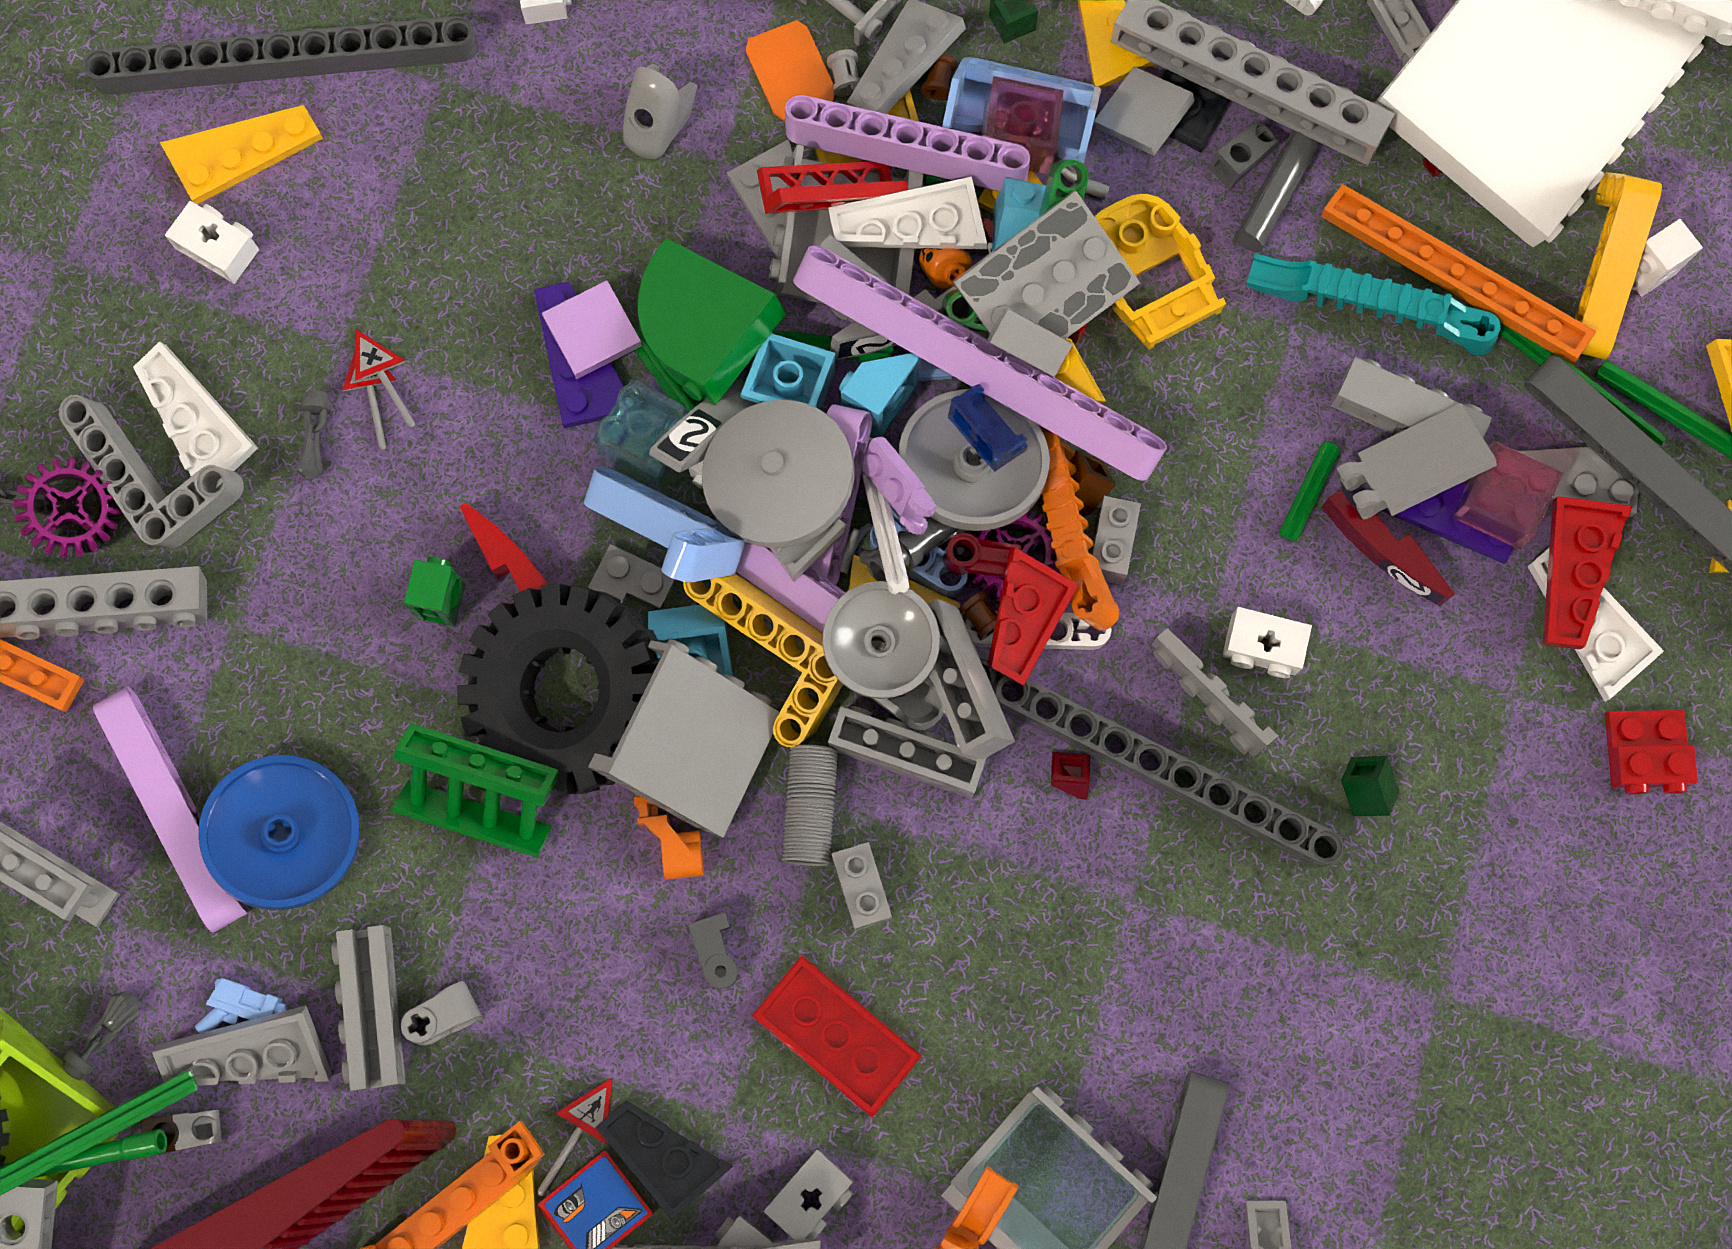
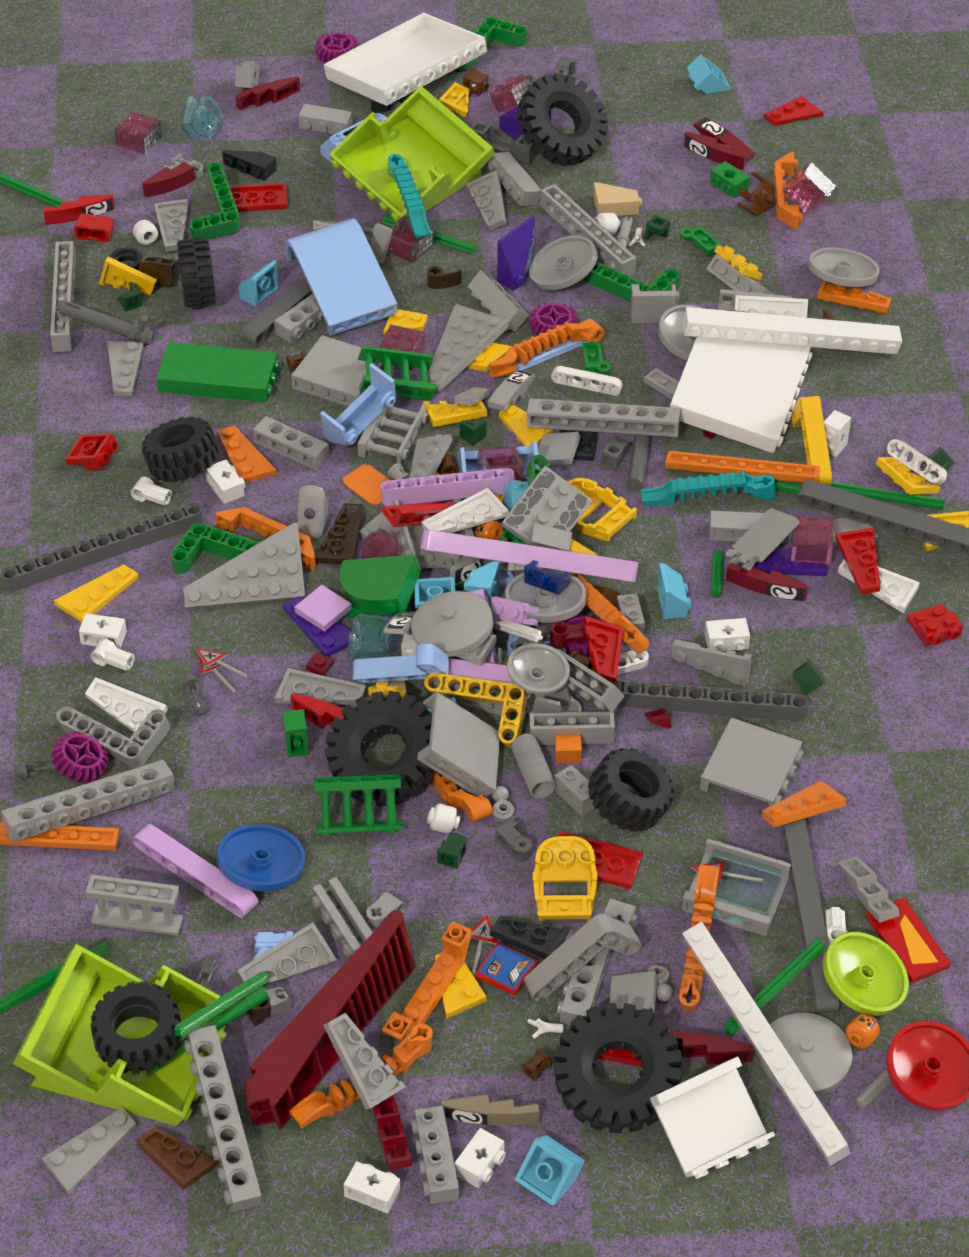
camera: 20 degrees left, 30 degrees down
(206, 295) = (107, 653): none -> white piece
(482, 126) = (210, 539): none -> green beam
(512, 216) = (258, 575): none -> light grey wing
(518, 498) = (319, 687): none -> light grey wing
(520, 73) = (232, 519): none -> orange slope
(546, 441) = (319, 664): none -> dark red plate
(604, 929) = (452, 850): none -> dark green brick
(615, 858) = (443, 818): none -> white head
(629, 561) = (385, 687): none -> yellow wing
(689, 183) = (342, 537): none -> dark brown wing
(732, 844) = (500, 795): none -> light grey plate
(736, 236) = (379, 545): none -> clear pink cylinder
(777, 1033) = (565, 861): none -> yellow slope
(885, 788) = (568, 748): none -> orange panel
(989, 950) = (621, 805): none -> black tyre
(1025, 1142) = (727, 874): none -> light grey piece
(1188, 945) = (753, 762): none -> light grey panel
(1208, 518) = (672, 593): none -> medium azure slope
(1239, 1074) = (806, 803): none -> orange wing

